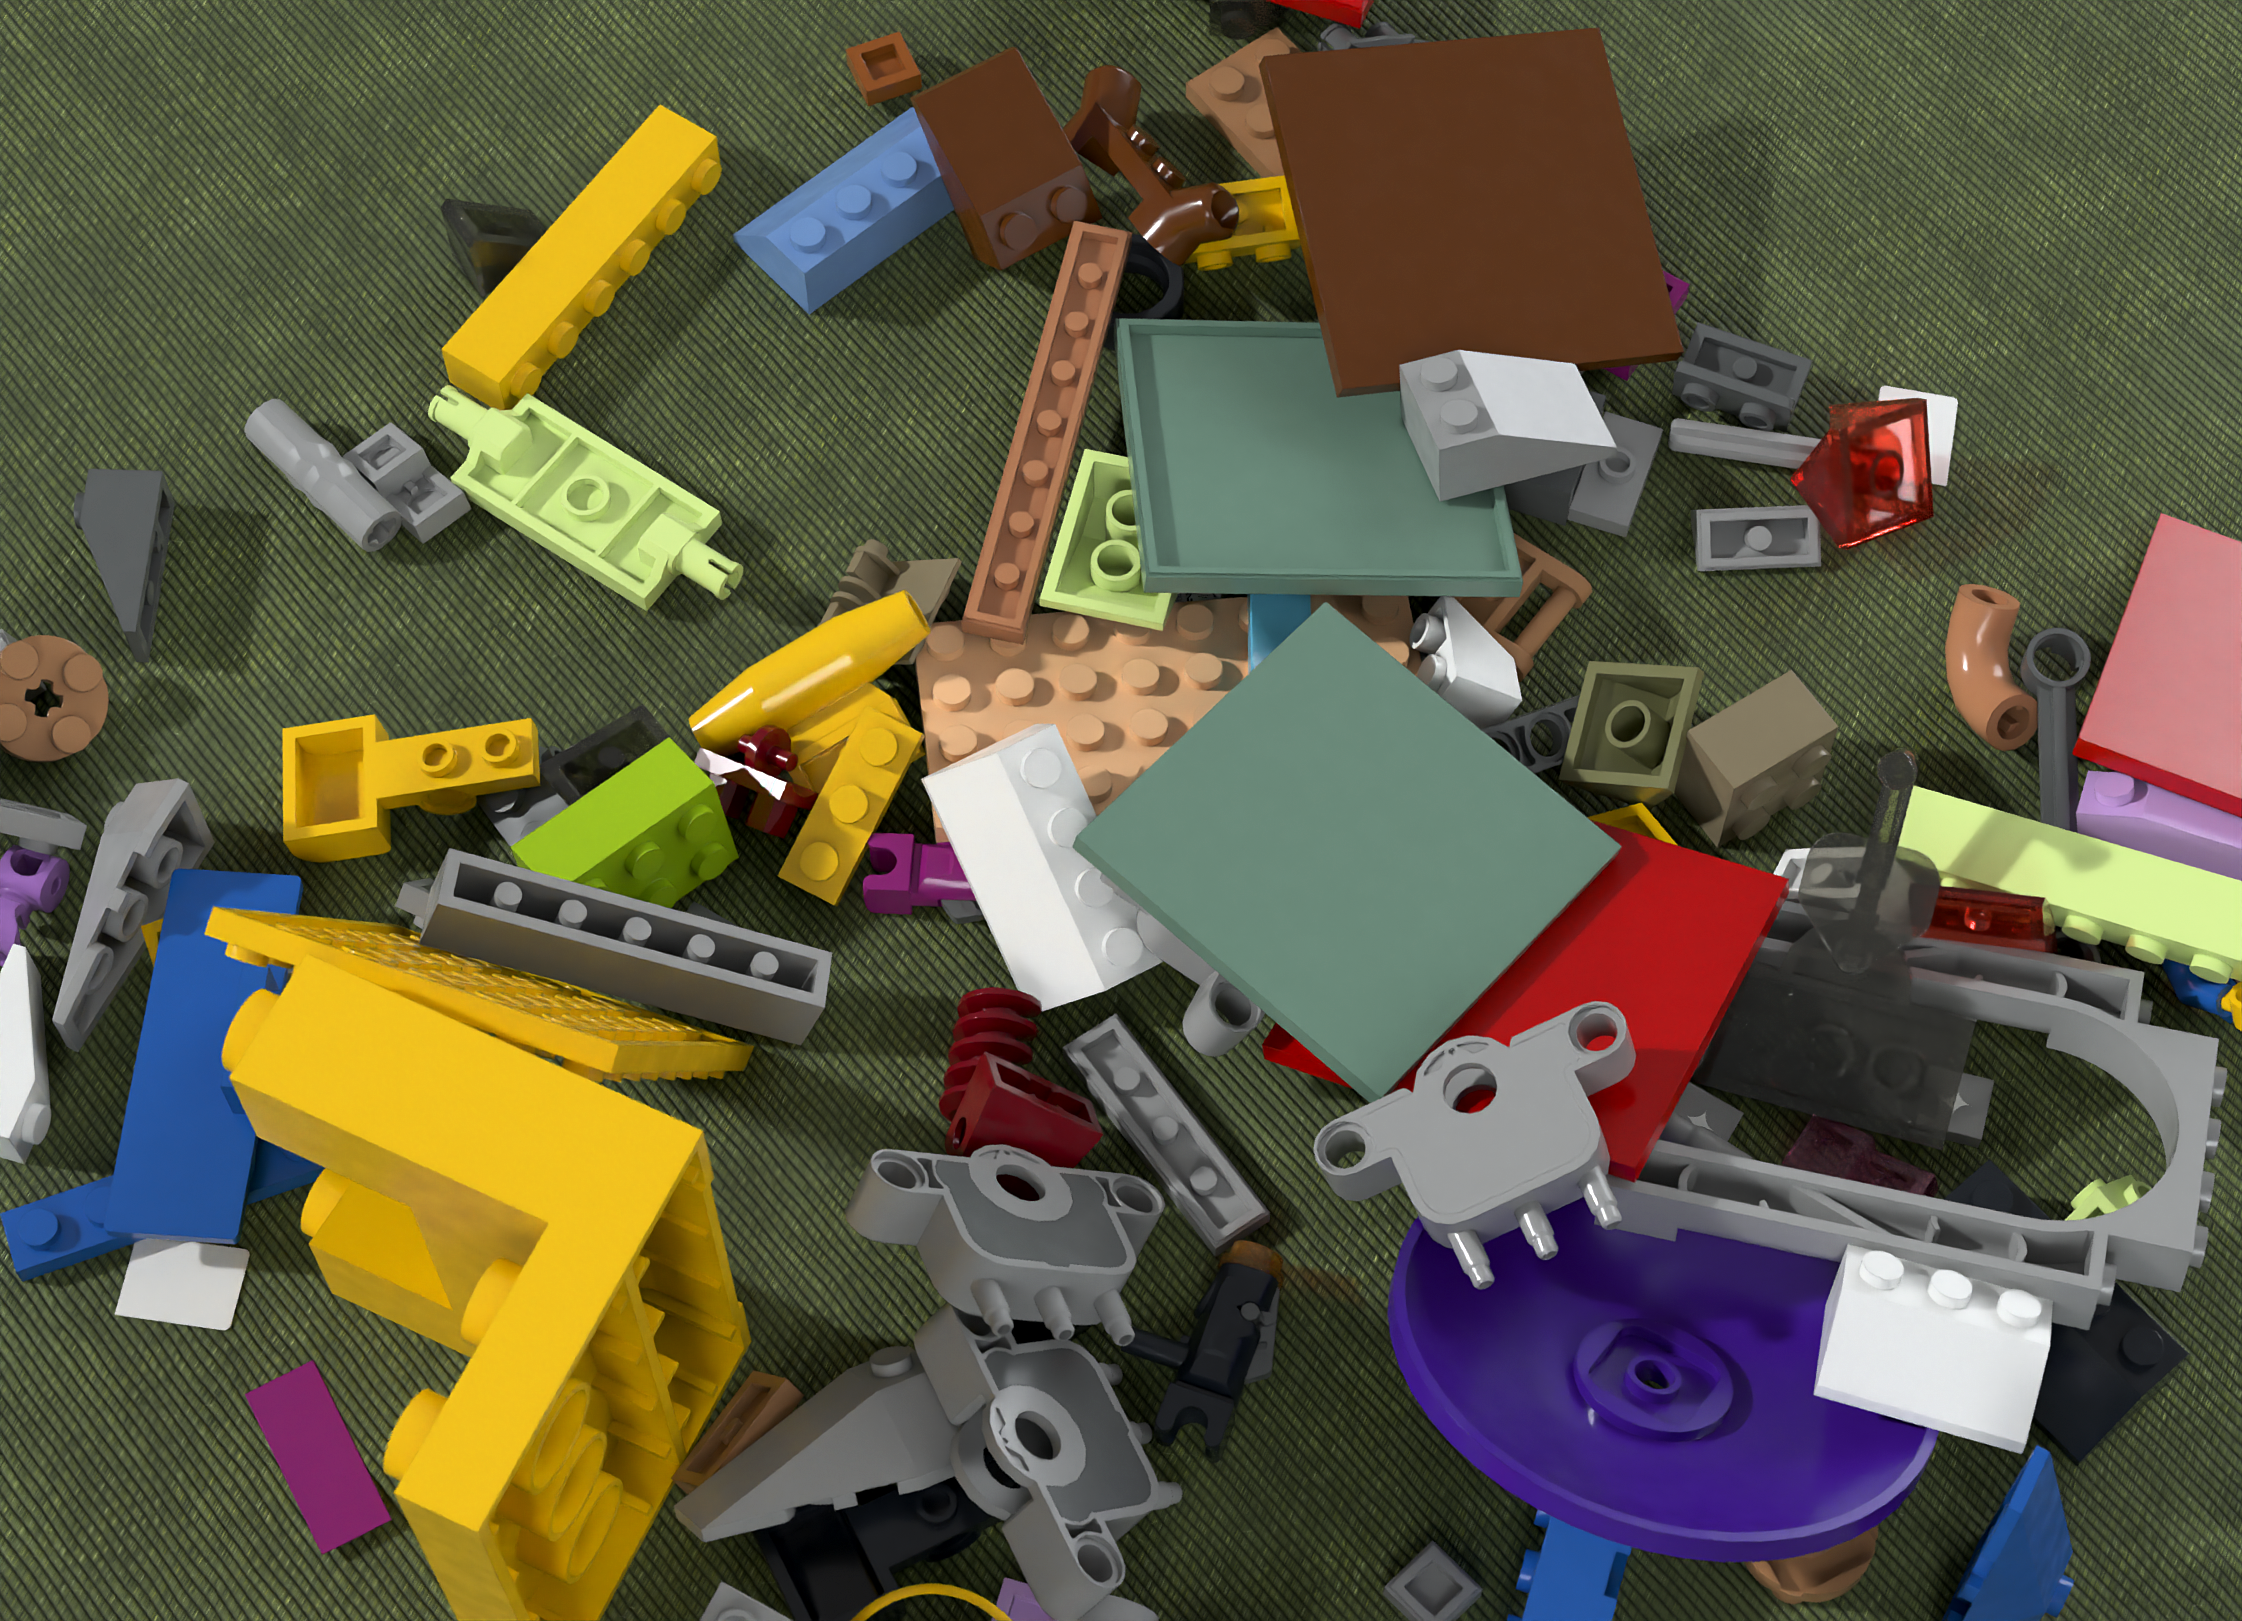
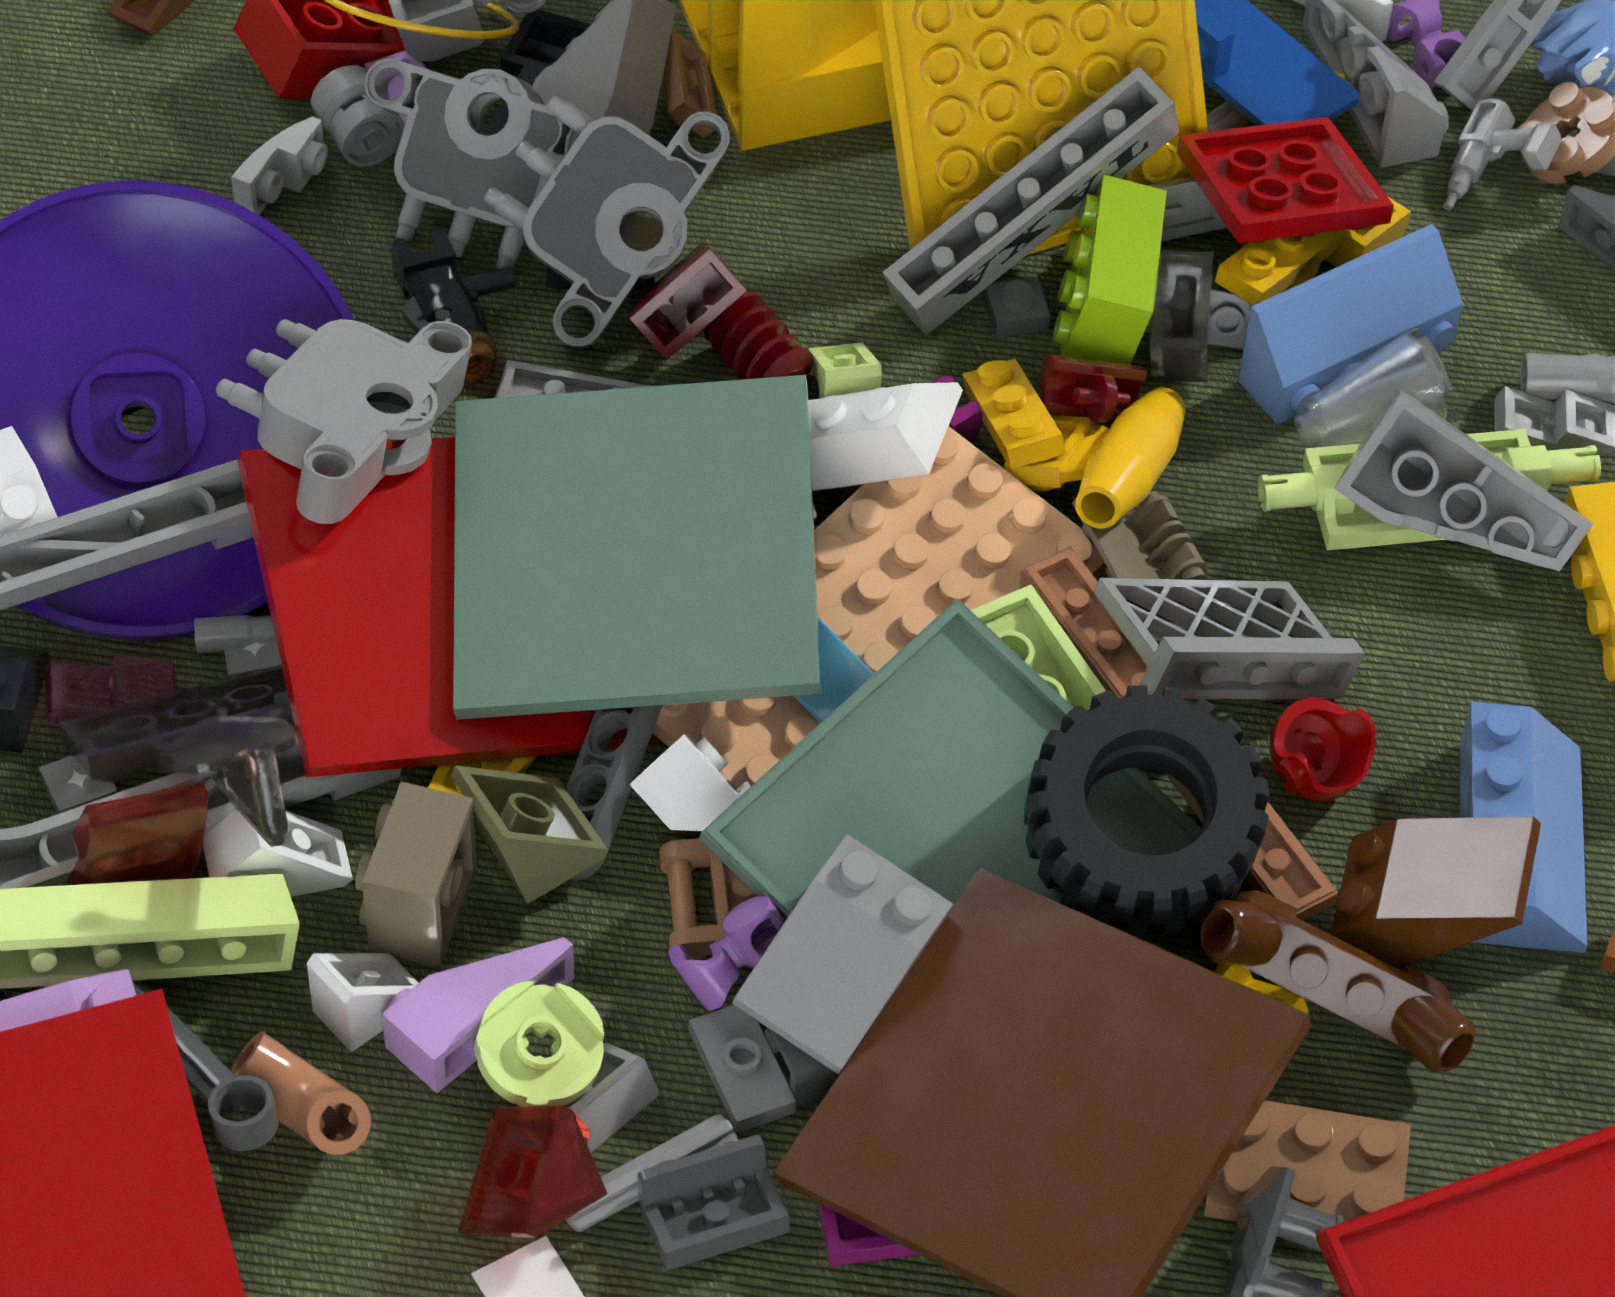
camera: 135 degrees right, 10 degrees down
(114, 762) = (1488, 136): none -> light grey piece
(377, 802) = (1284, 180): none -> red plate
(477, 664) = (1346, 315): none -> medium blue slope
(538, 579) = (1352, 402): none -> clear cone
(588, 454) = (1442, 482): none -> light grey wedge
(921, 417) = (1224, 661): none -> light grey fence
(942, 967) = (845, 369): none -> yellowish green slope
(945, 348) = (1321, 748): none -> red cap
(1172, 376) = (1159, 736): none -> black tyre
(1541, 515) = (747, 936): none -> medium lavender leg
(1758, 581) = (543, 1011): none -> yellowish green plate
(1824, 646) = (439, 1018): none -> lavender slope
(1873, 721) = (353, 992): none -> white slope

